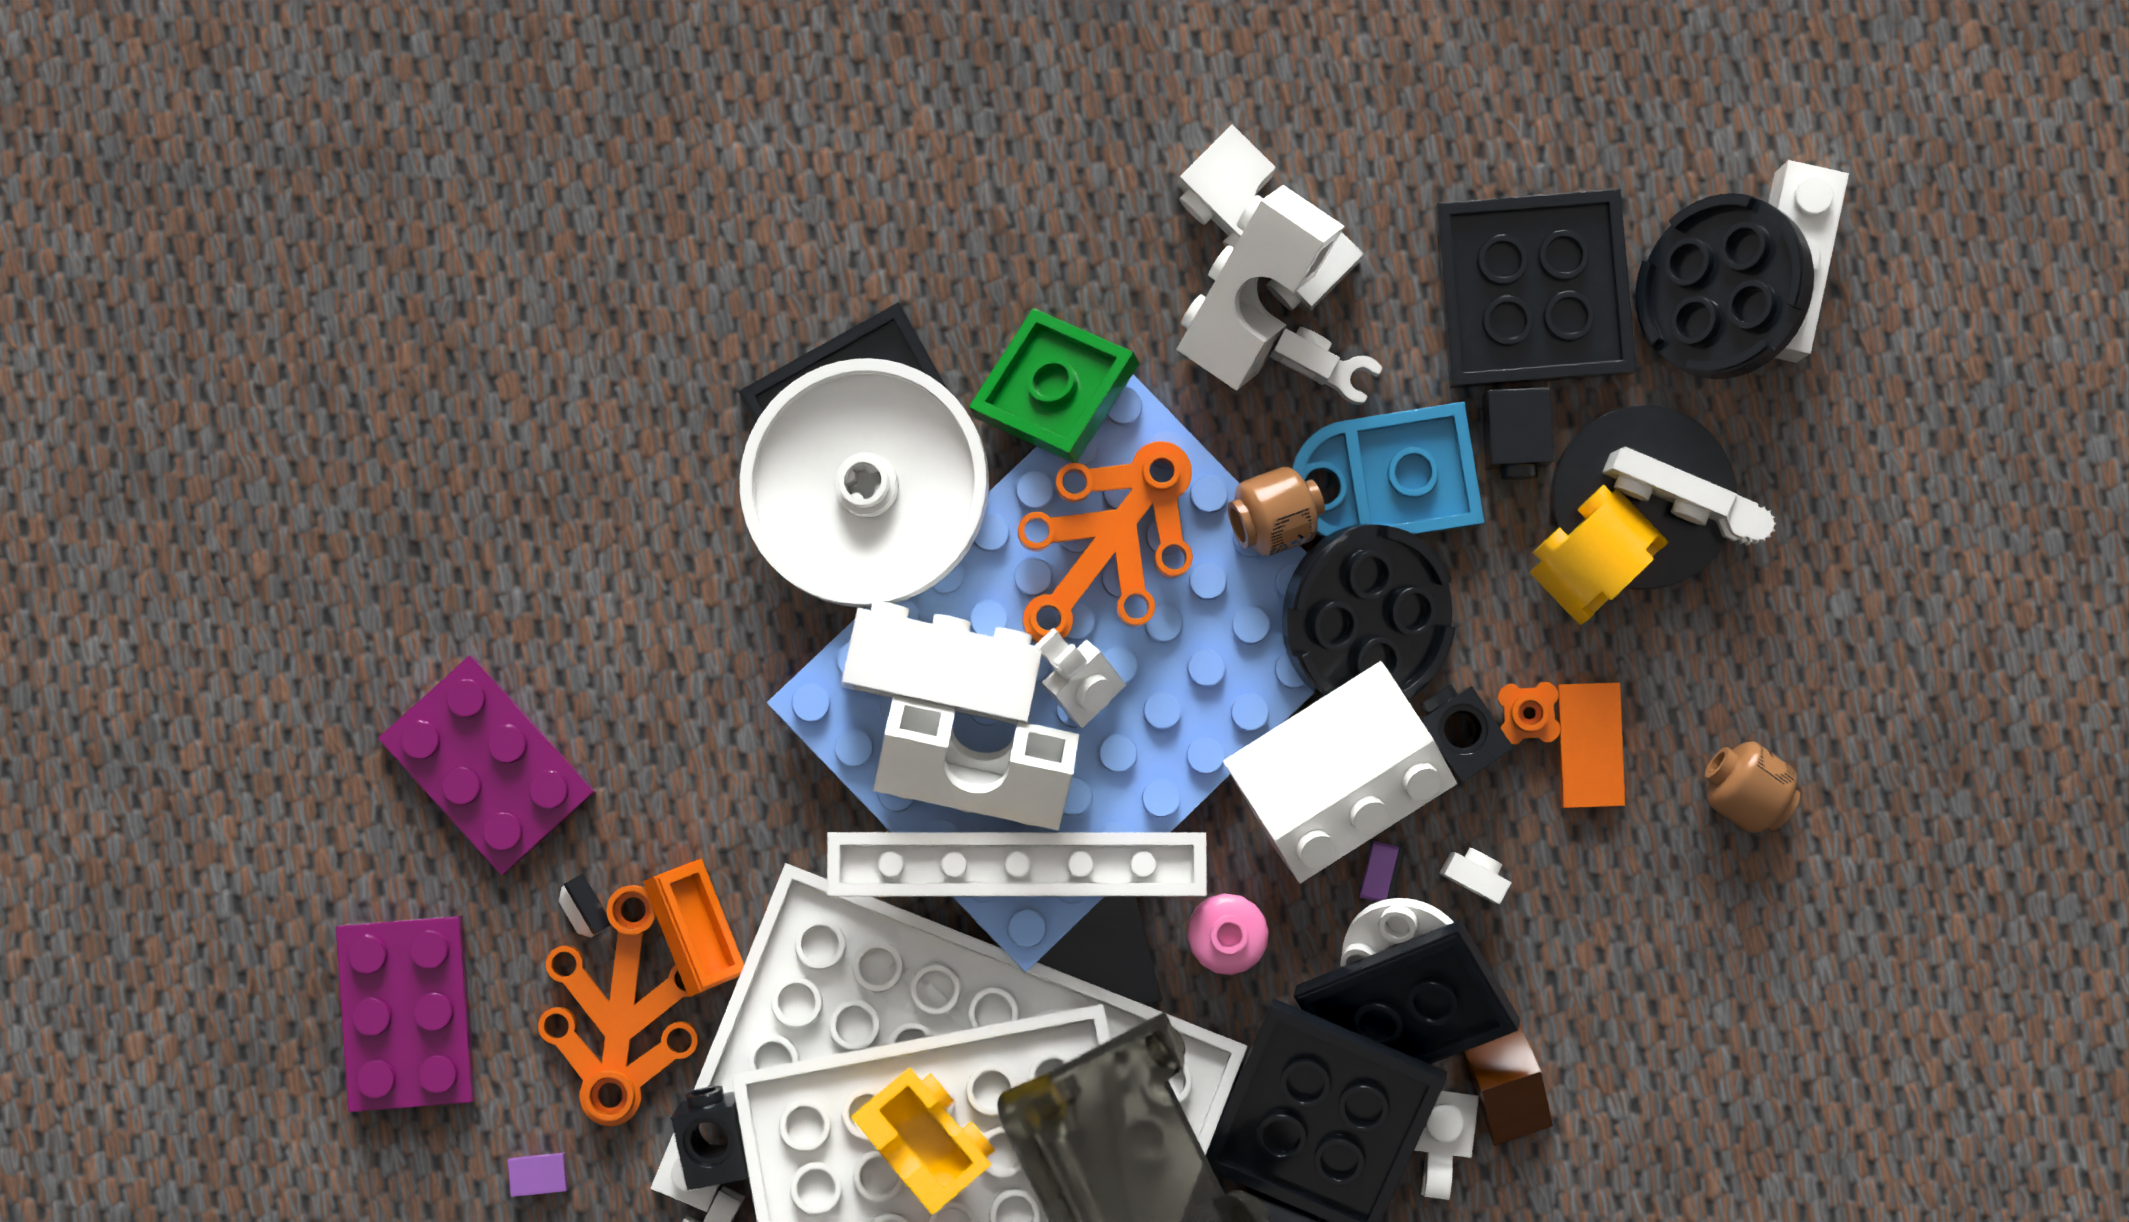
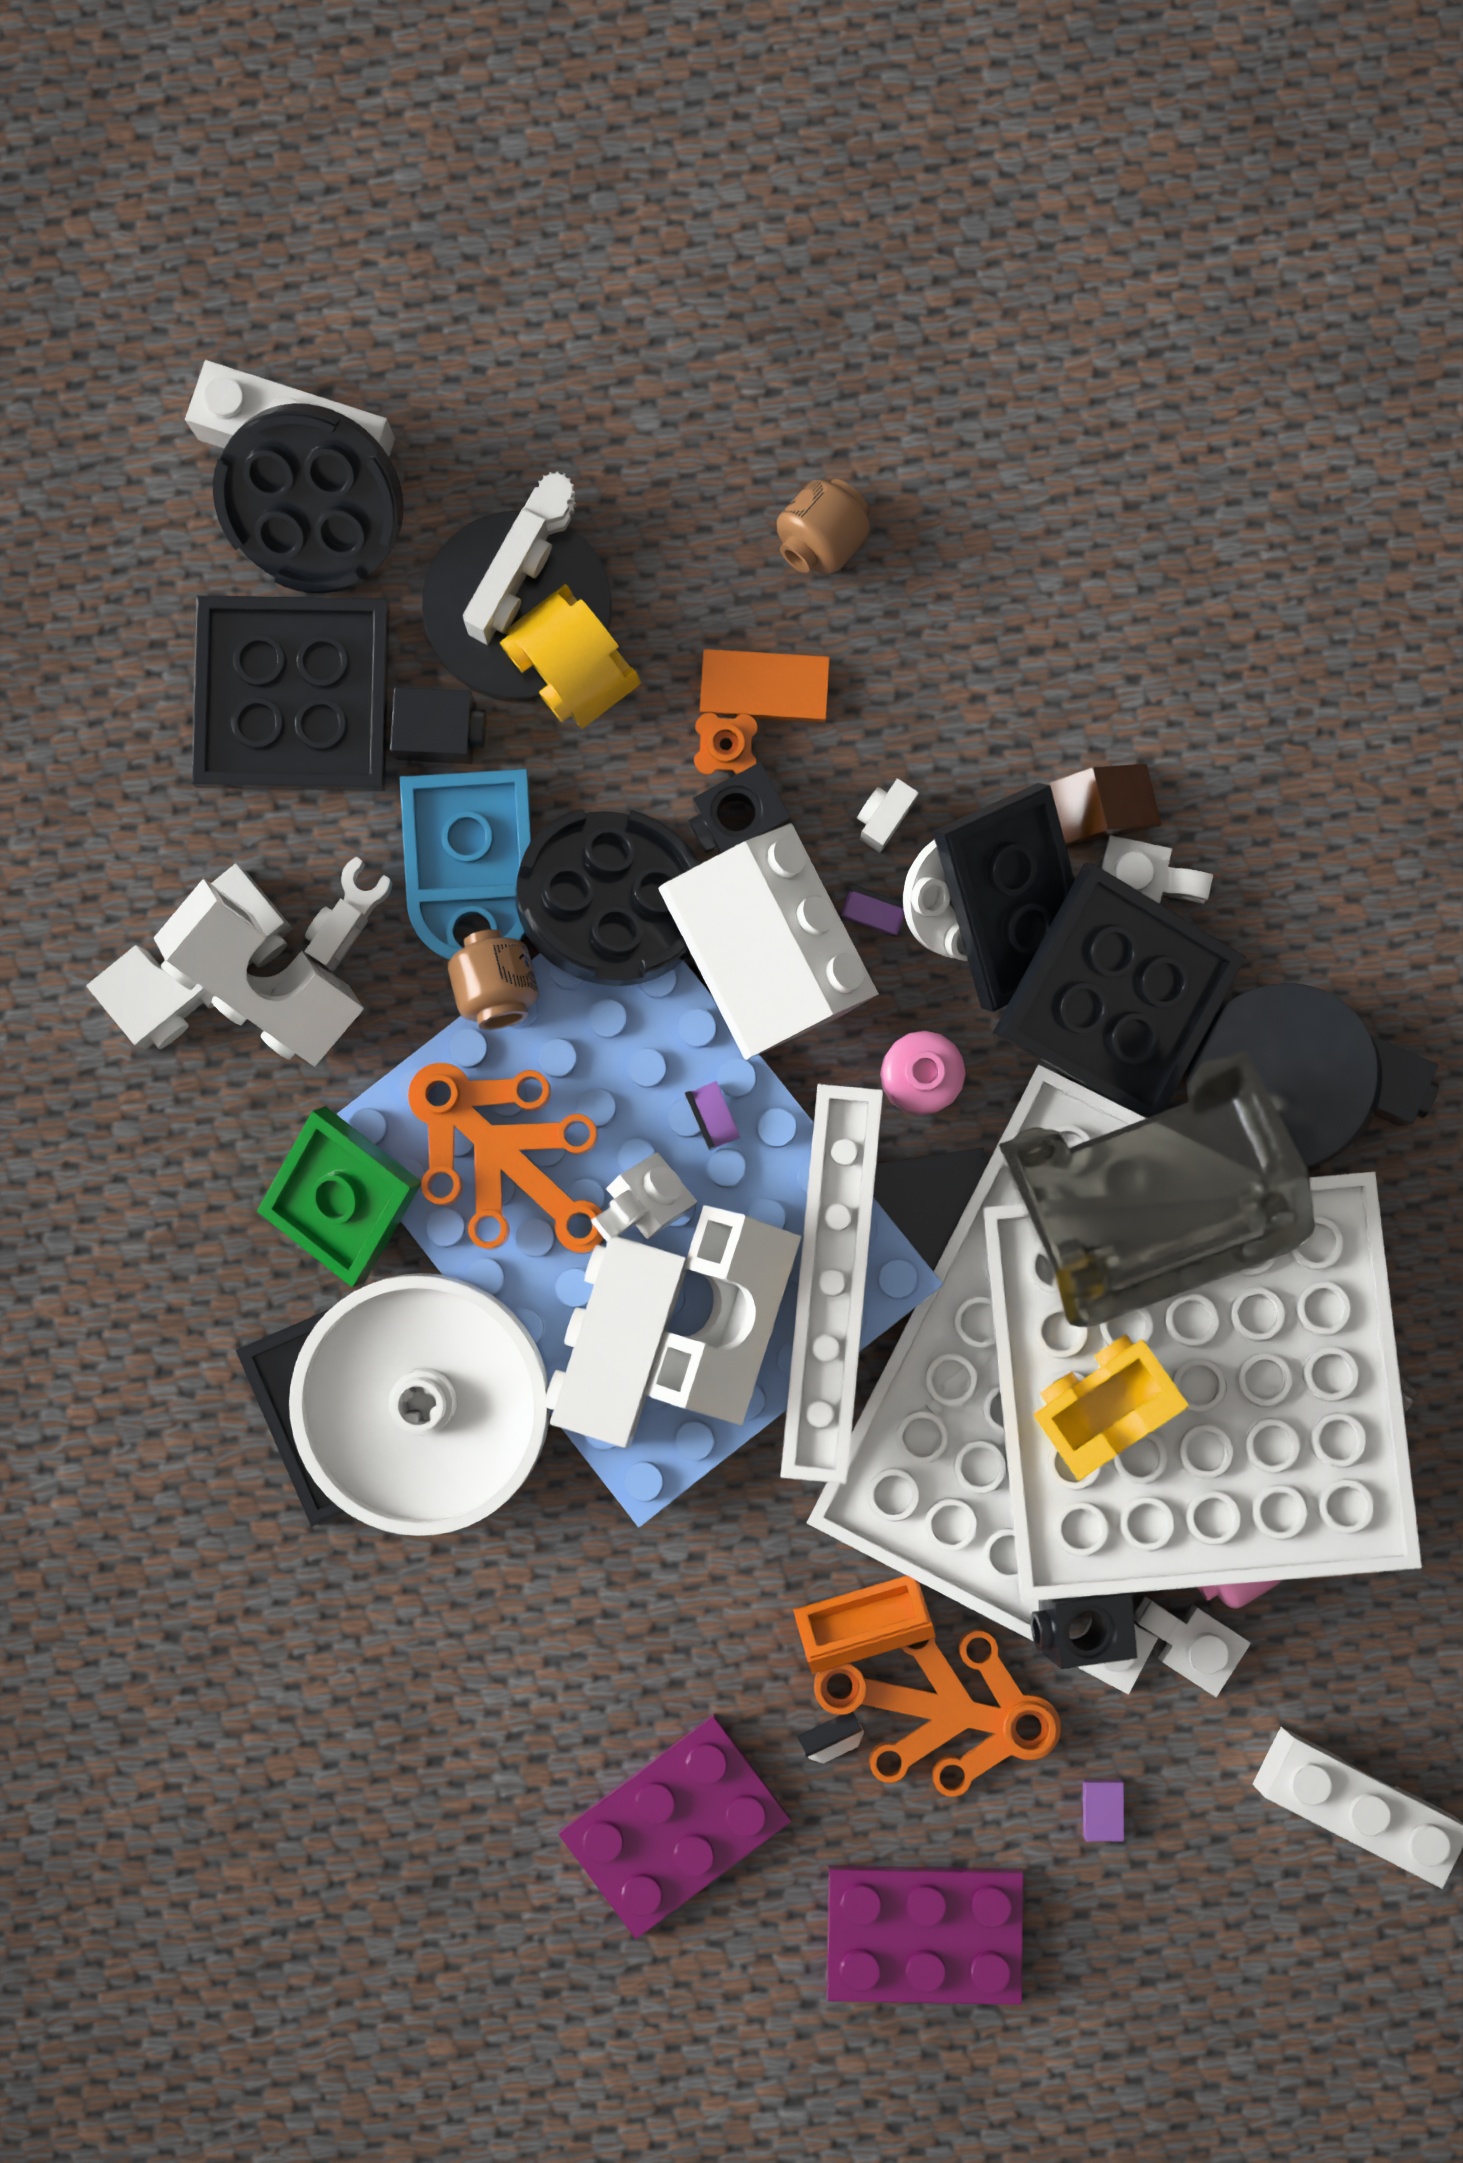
camera: 80 degrees left, 0 degrees up
(1166, 734) = (712, 1115): none -> medium lavender piece

